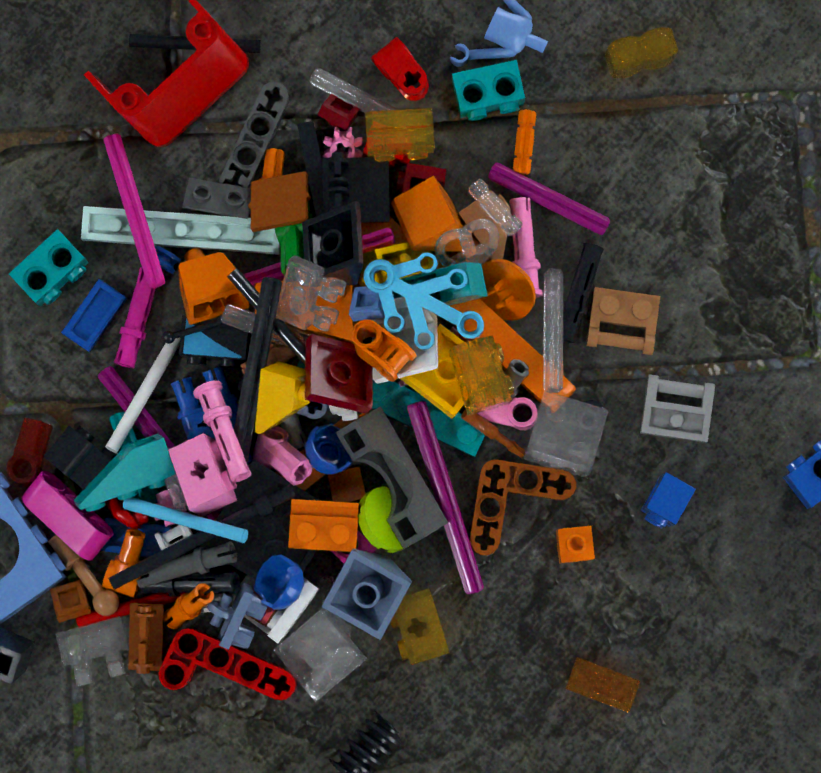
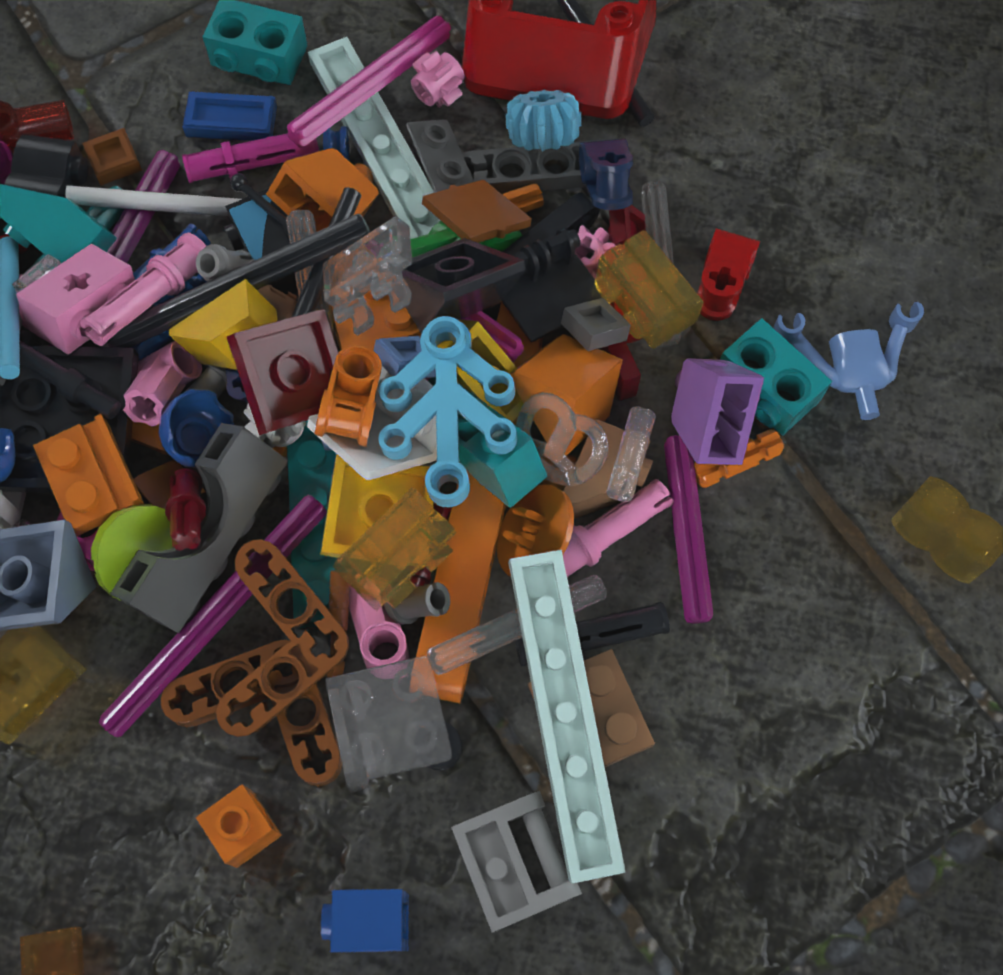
camera: 55 degrees right, 15 degrees down
(80, 408) = (112, 156): none -> dark orange tile
(153, 165) = (437, 79): none -> bright pink gear
(229, 377) = (217, 261): none -> light grey pin
(230, 117) = (543, 120): none -> medium azure gear
(299, 104) = (606, 172): none -> dark blue piece
(377, 480) = (185, 509): none -> dark red axle
(403, 177) = (595, 324): none -> dark grey plate
(493, 140) = (715, 409): none -> medium lavender torso
(498, 463) = (296, 651): none -> dark orange beam
(619, 335) = (566, 717): none -> light aqua plate

